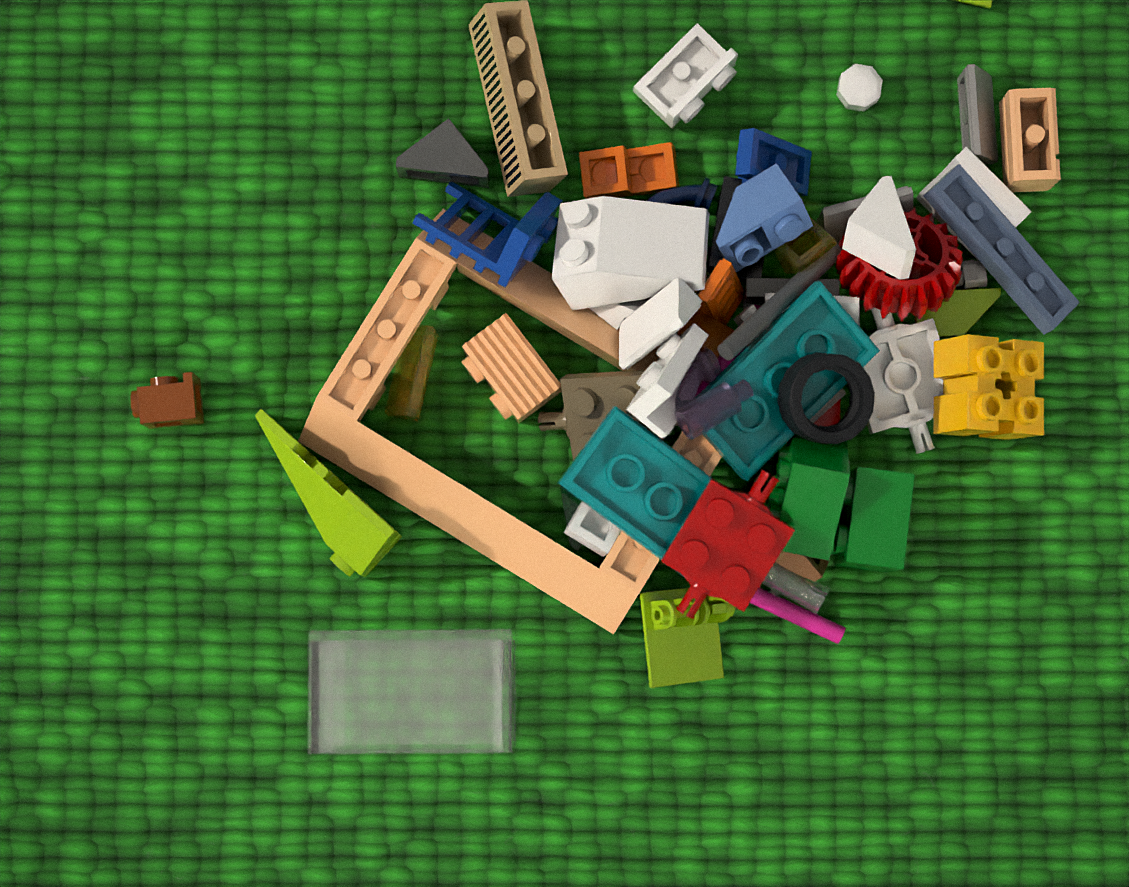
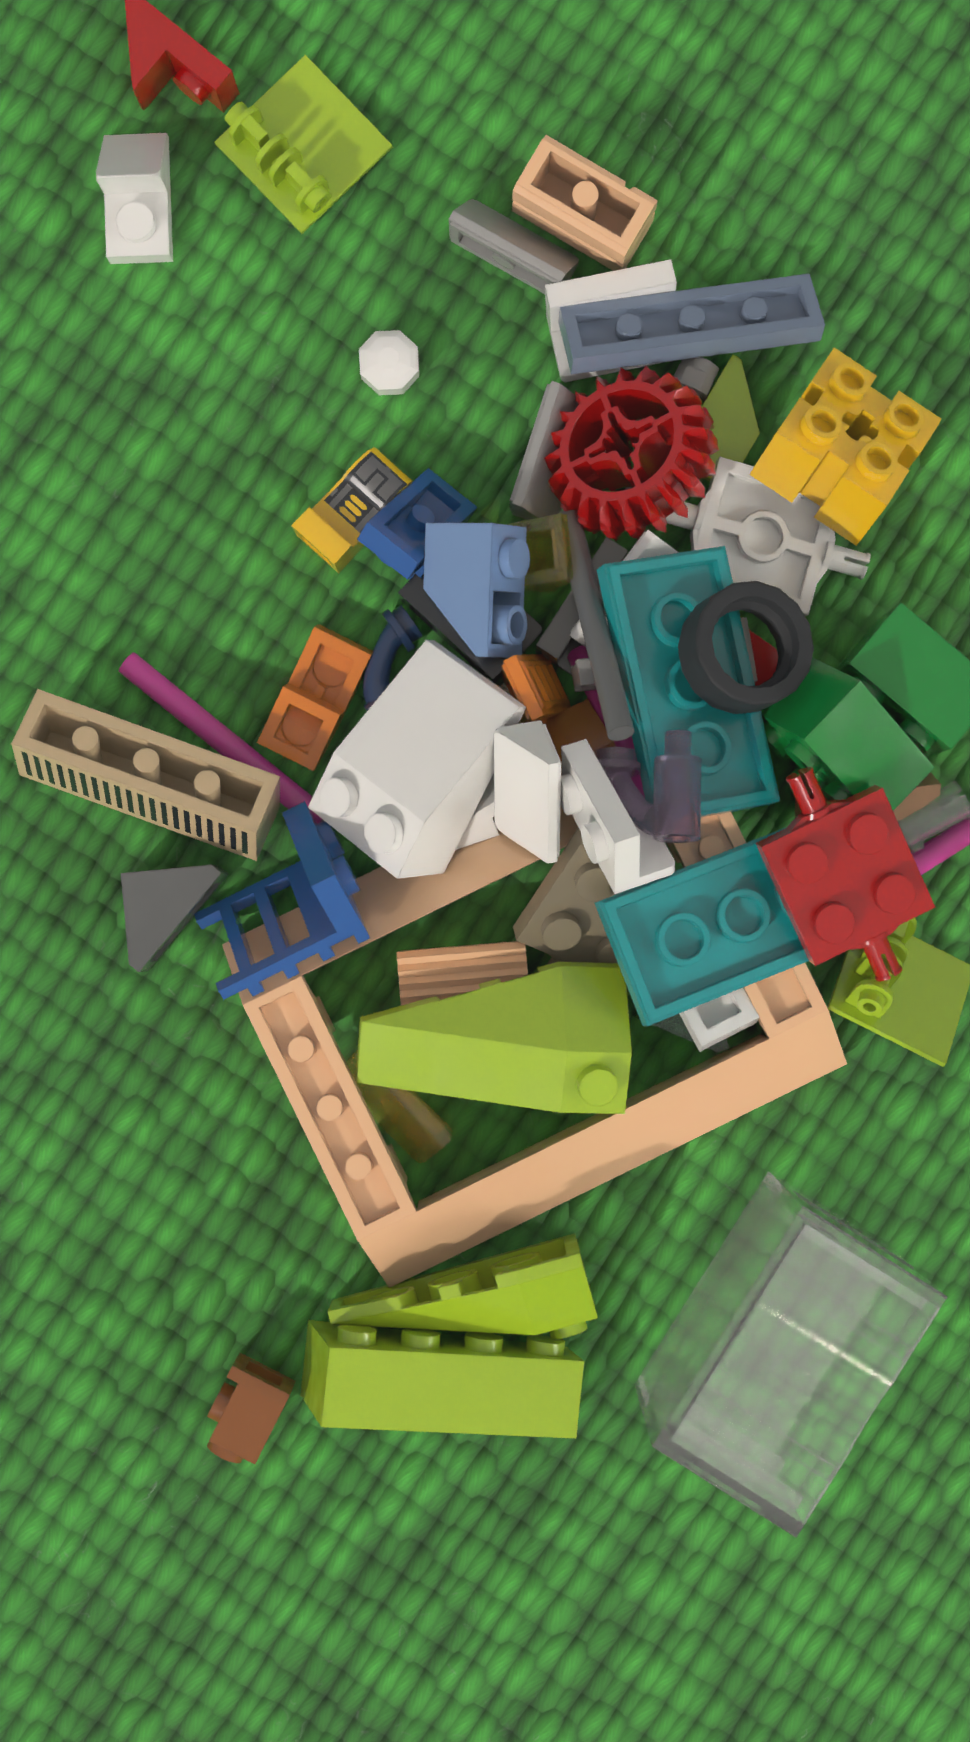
camera: 55 degrees left, 5 degrees up
(261, 507) = (440, 1381): none -> lime wedge
(501, 420) = (522, 1042): none -> lime wedge
(570, 114) = (207, 726): none -> dark pink bar
(686, 76) = (246, 558): white bracket -> none
(746, 112) = (342, 513): none -> leg
(880, 231) = (590, 453): white slope -> none

